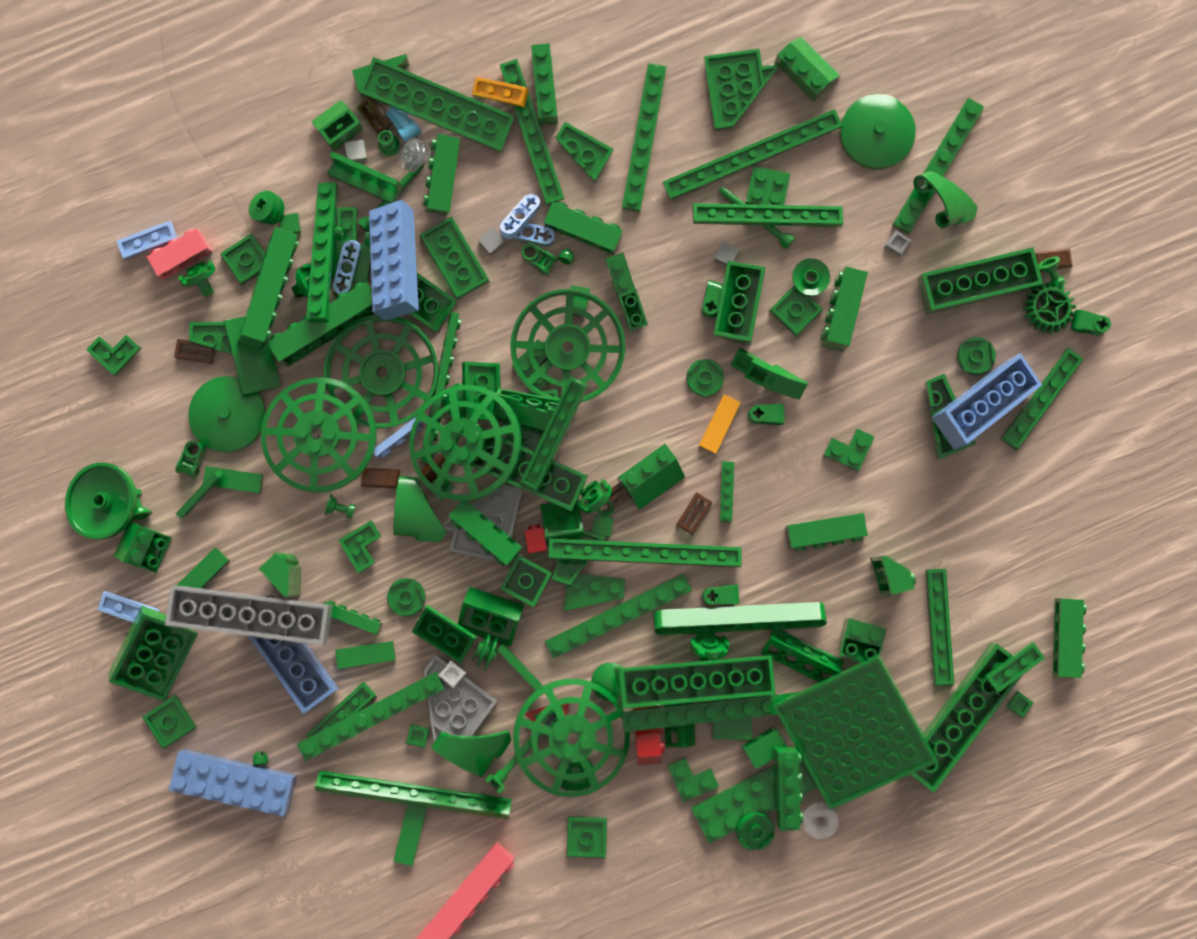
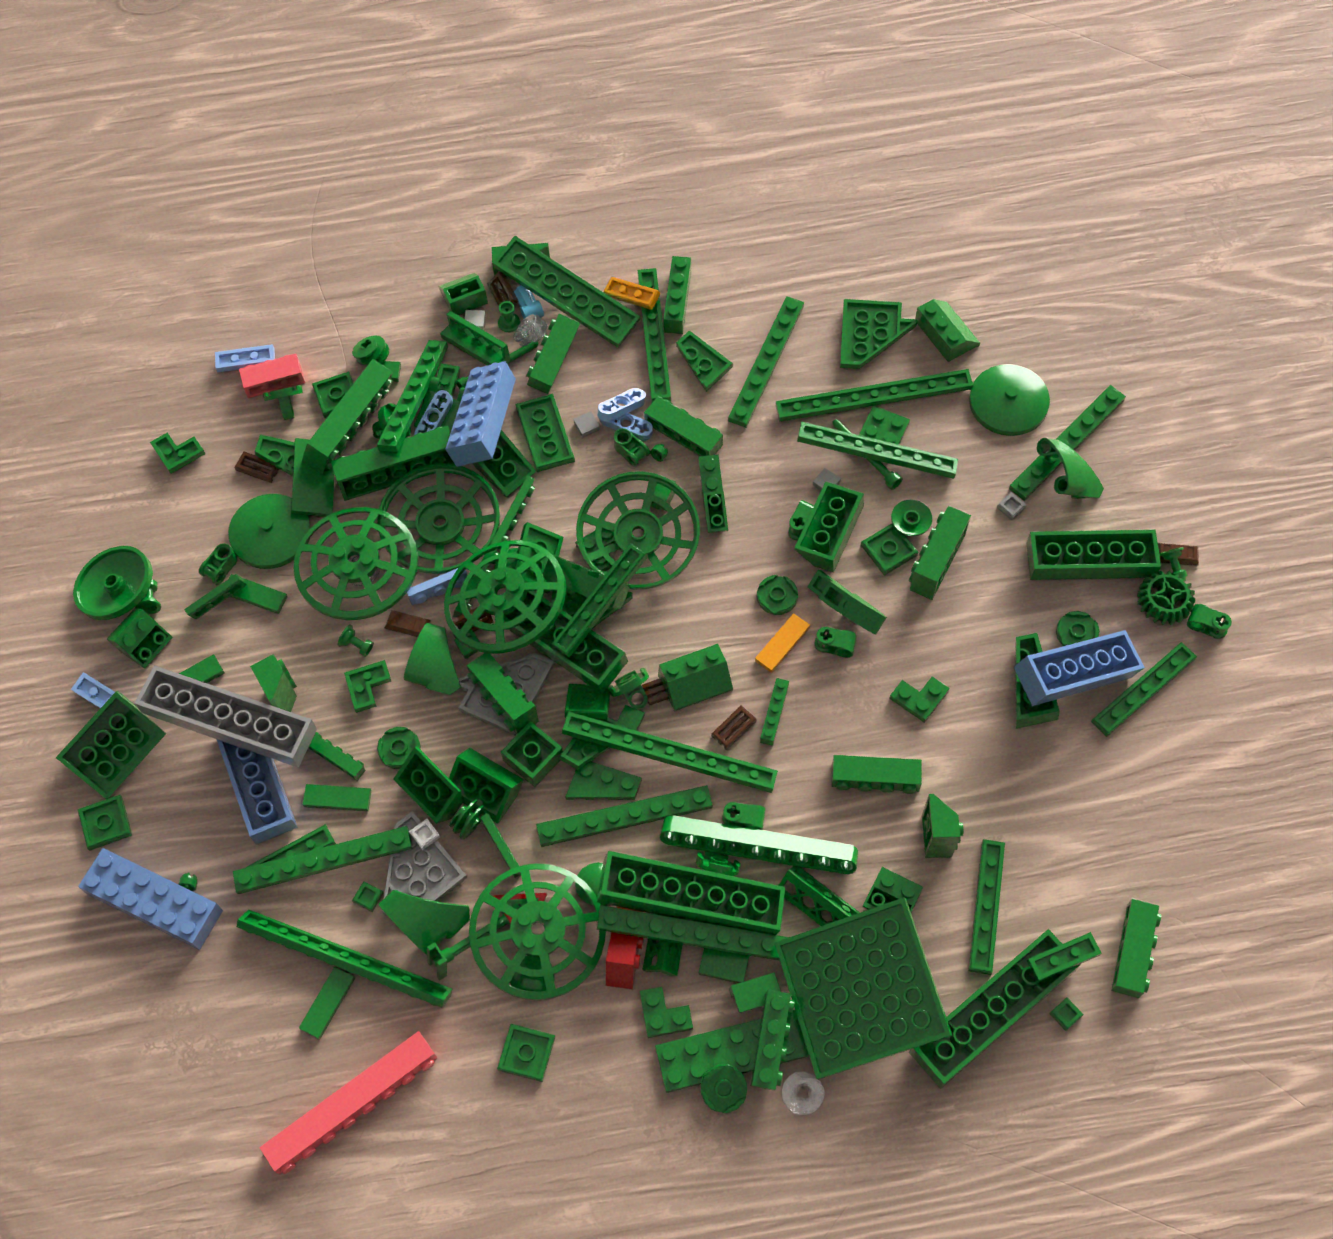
camera: 15 degrees right, 20 degrees down
(535, 539) = (553, 716): red brick -> none

